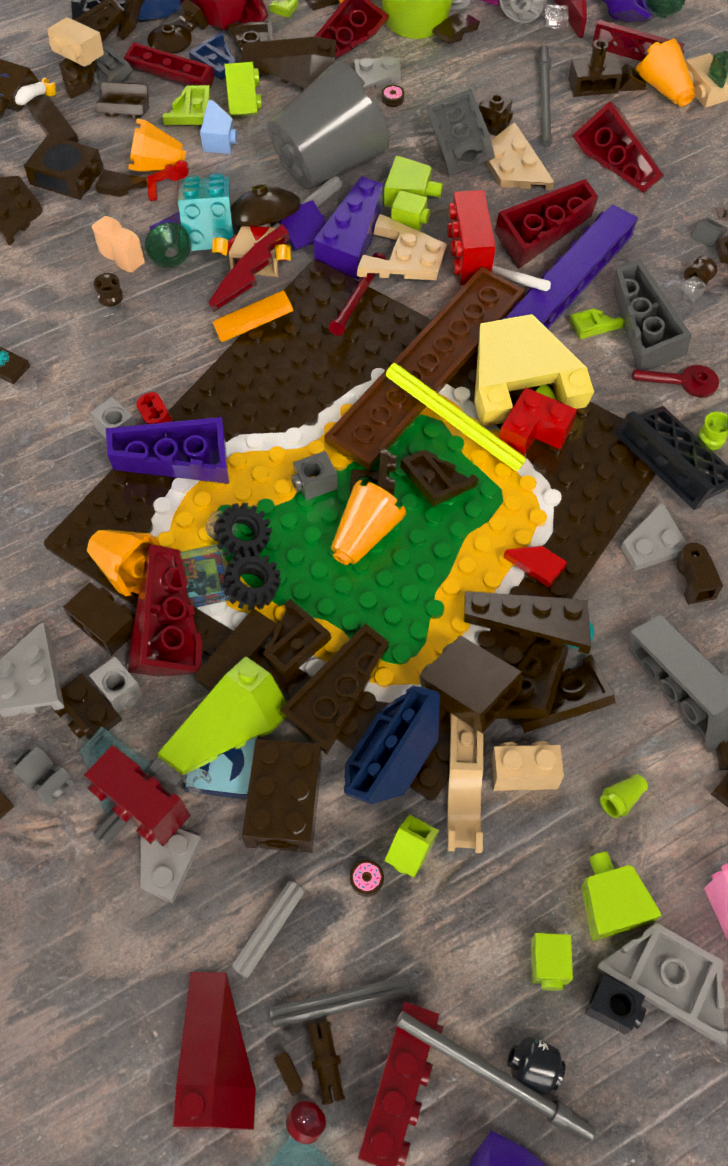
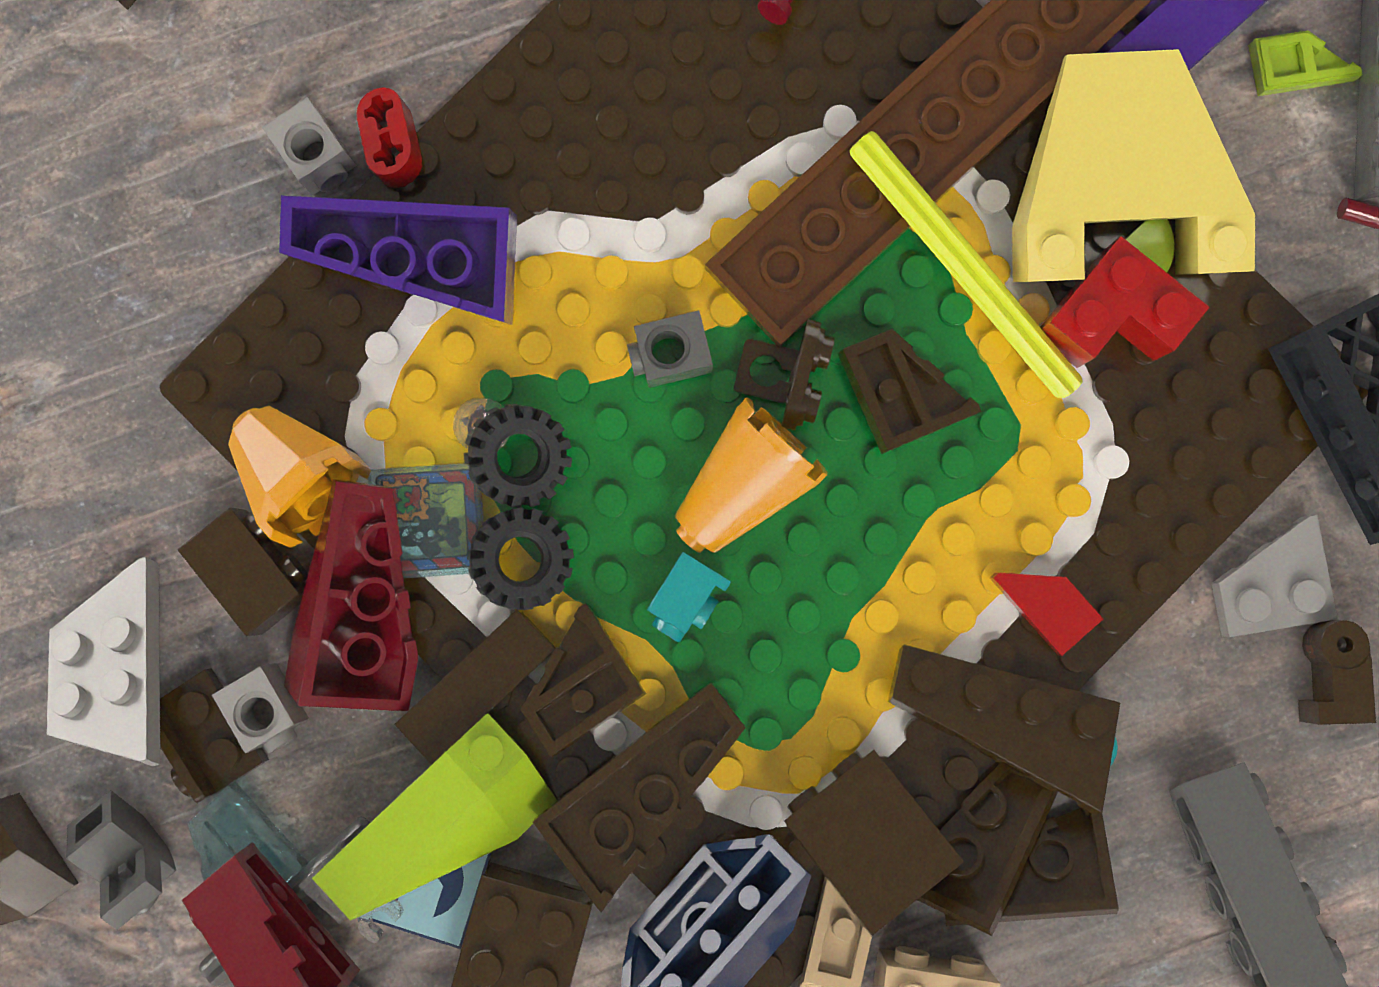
camera: 15 degrees right, 25 degrees up
(344, 584) = (686, 597): none -> teal brick

